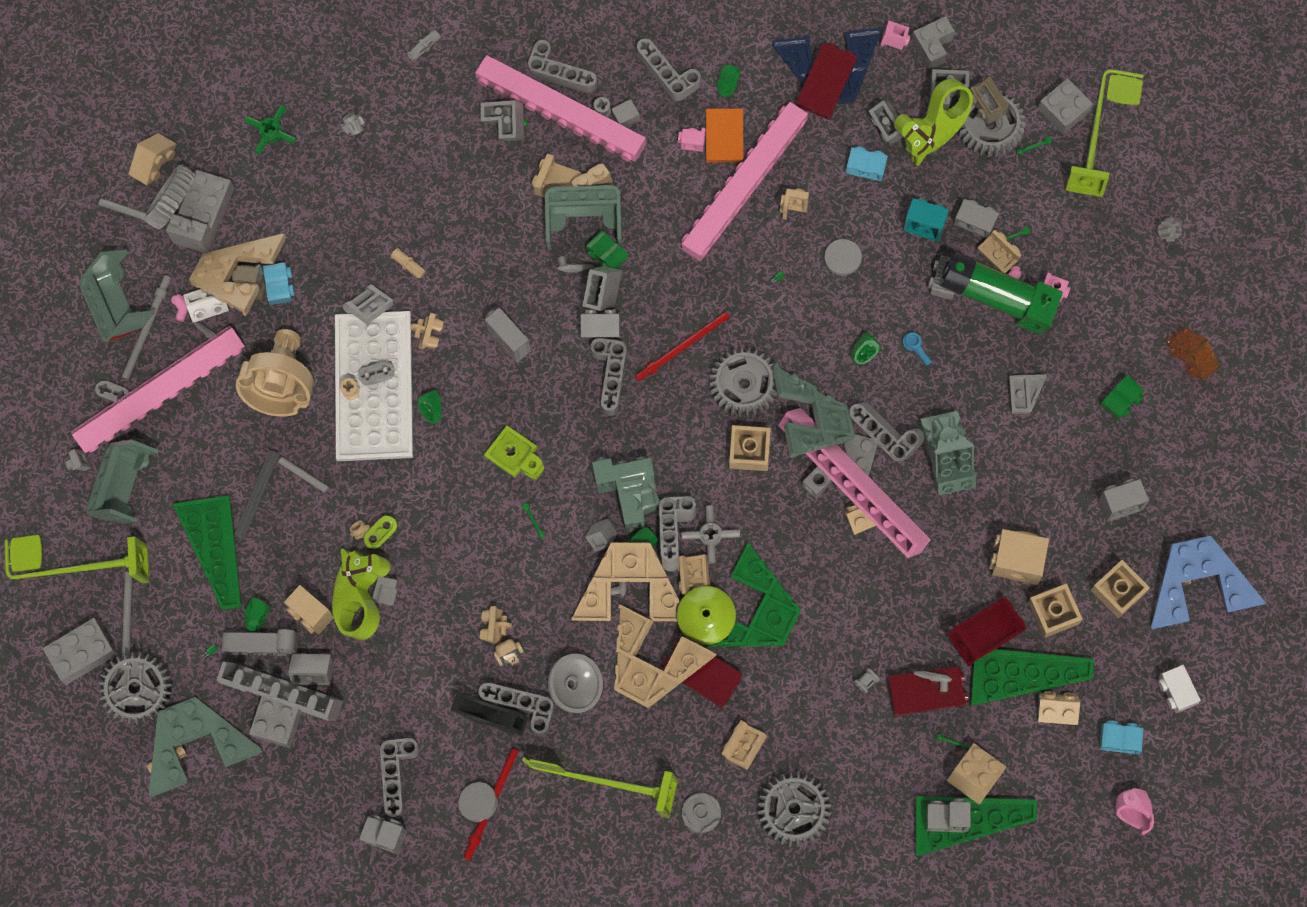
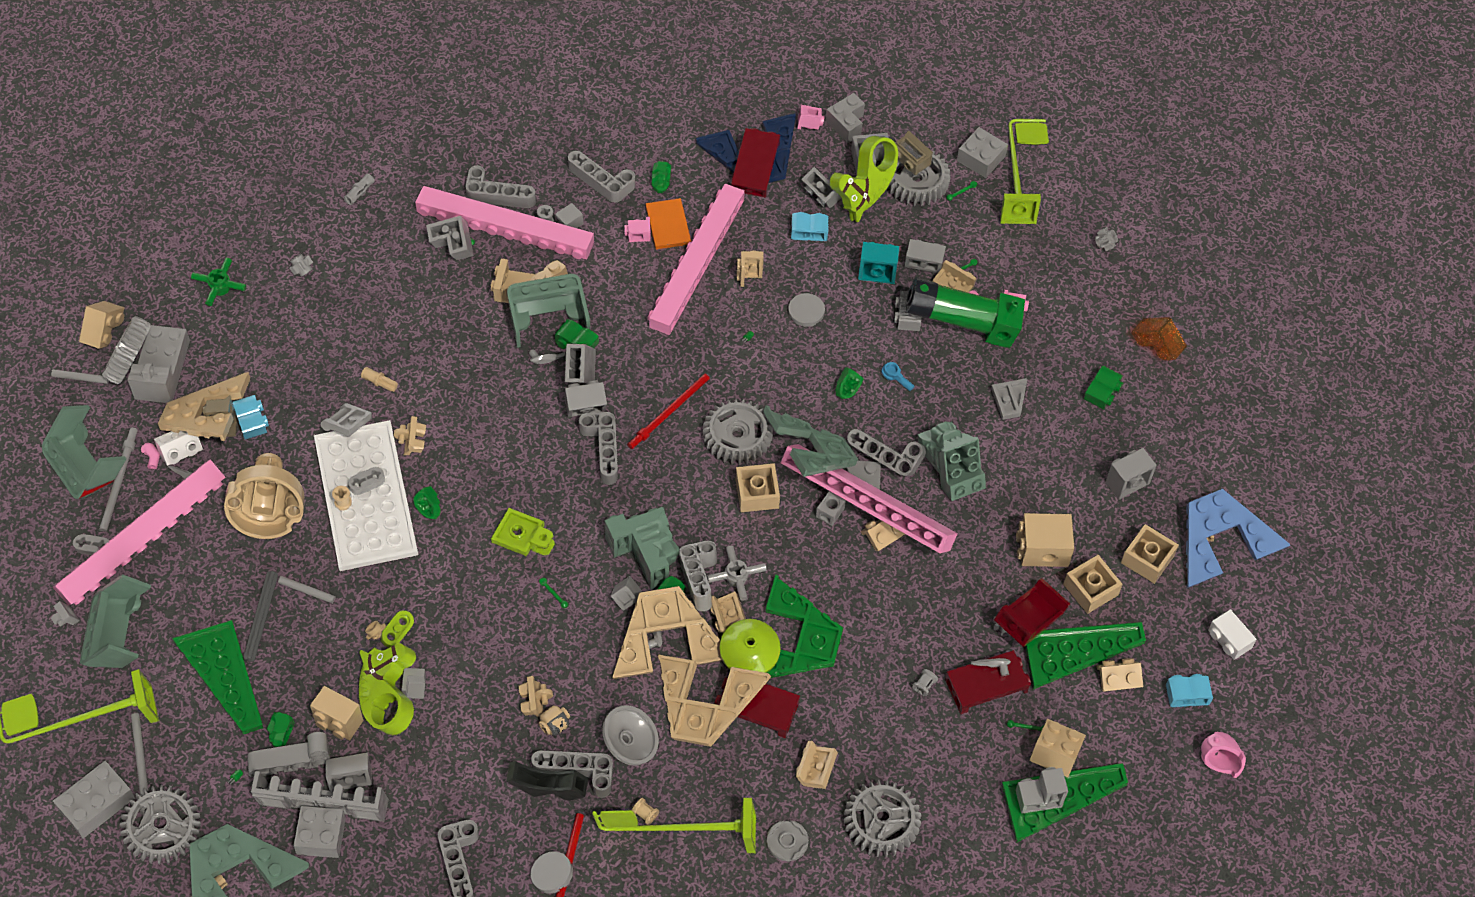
camera: 20 degrees left, 15 degrees down
(507, 334) = (494, 424): light grey brick -> none
(575, 759) = (645, 811): none -> tan bush

